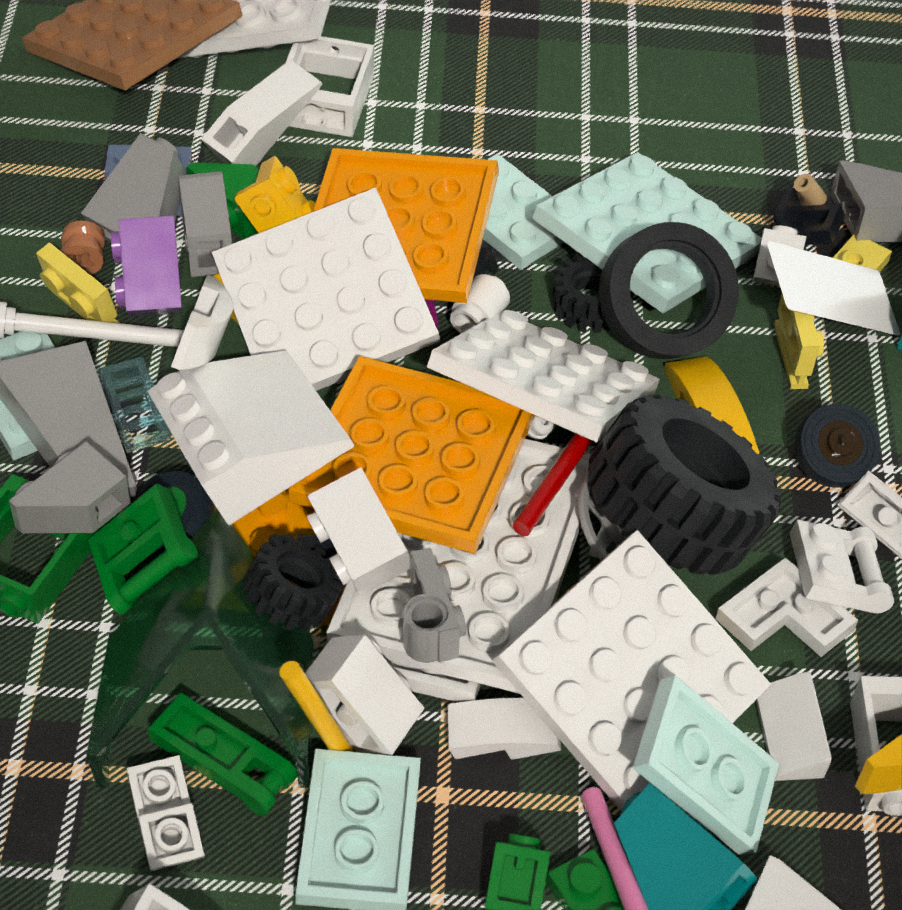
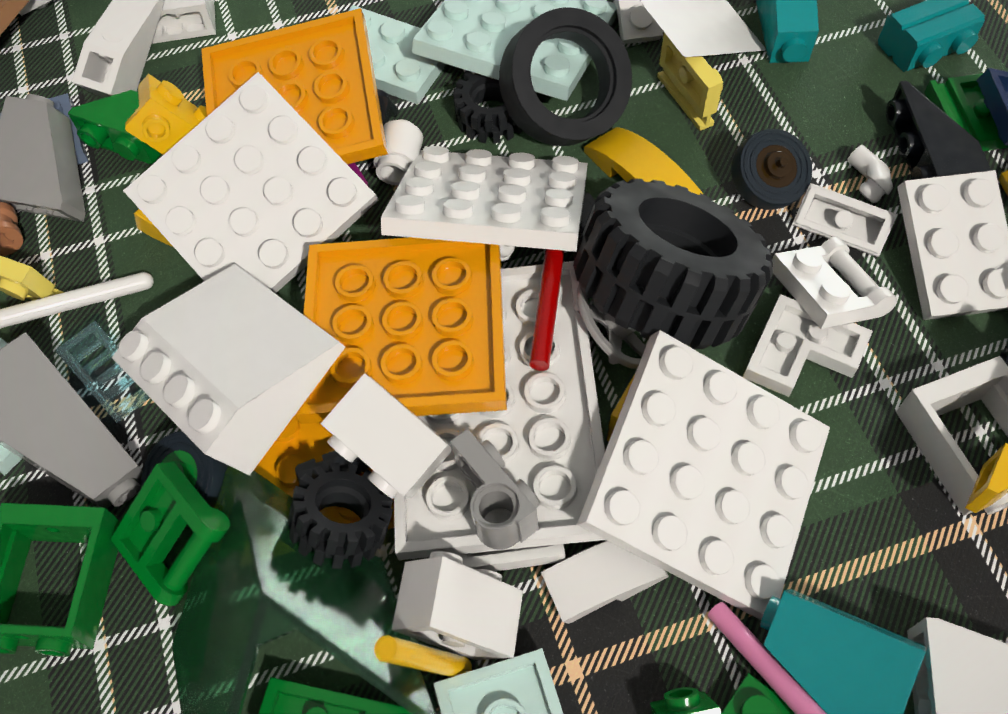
camera: 15 degrees left, 10 degrees up
(71, 496) = (71, 510): light grey slope -> none
(148, 265) = (62, 227): medium lavender brick -> none
(204, 220) = (103, 159): light grey slope -> none
(204, 326) = (144, 274): white slope -> none
(706, 765) = (822, 545): light aqua plate -> none
(794, 728) = (868, 462): white slope -> none

